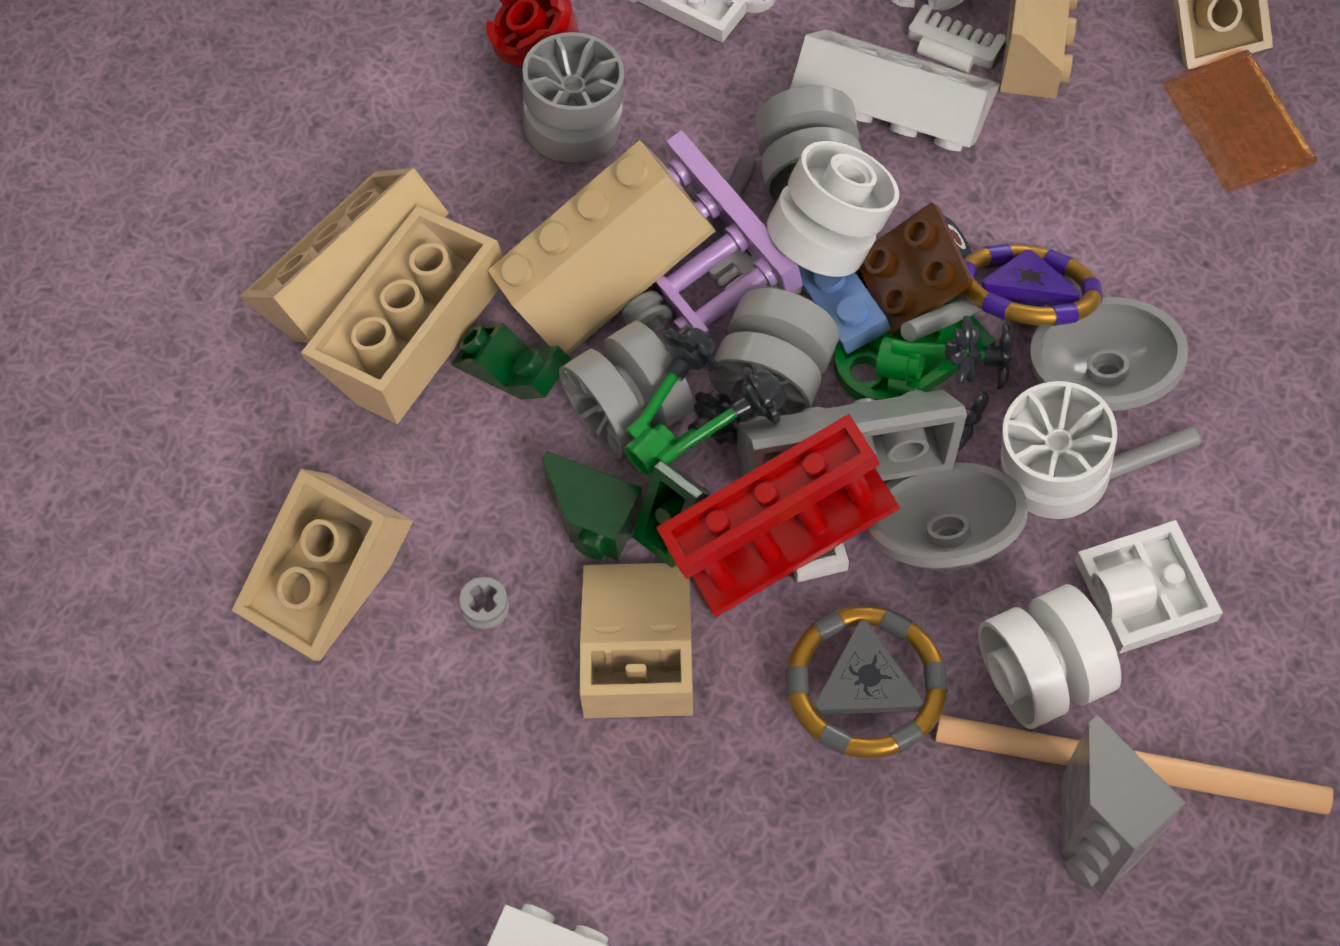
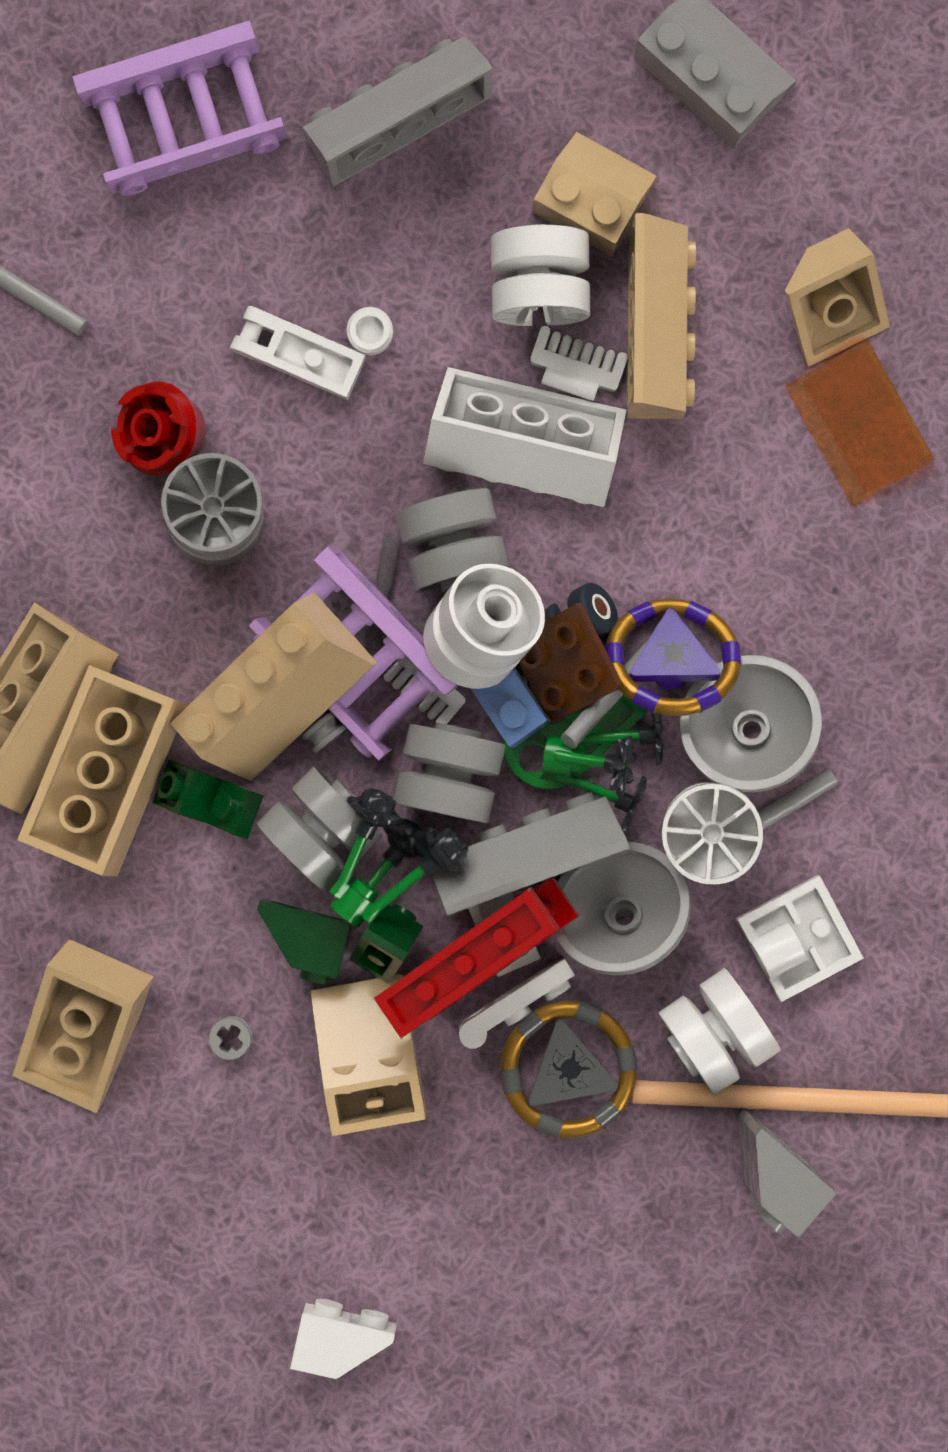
camera: 15 degrees left, 25 degrees up
(803, 606) = (514, 1003): none -> white plate

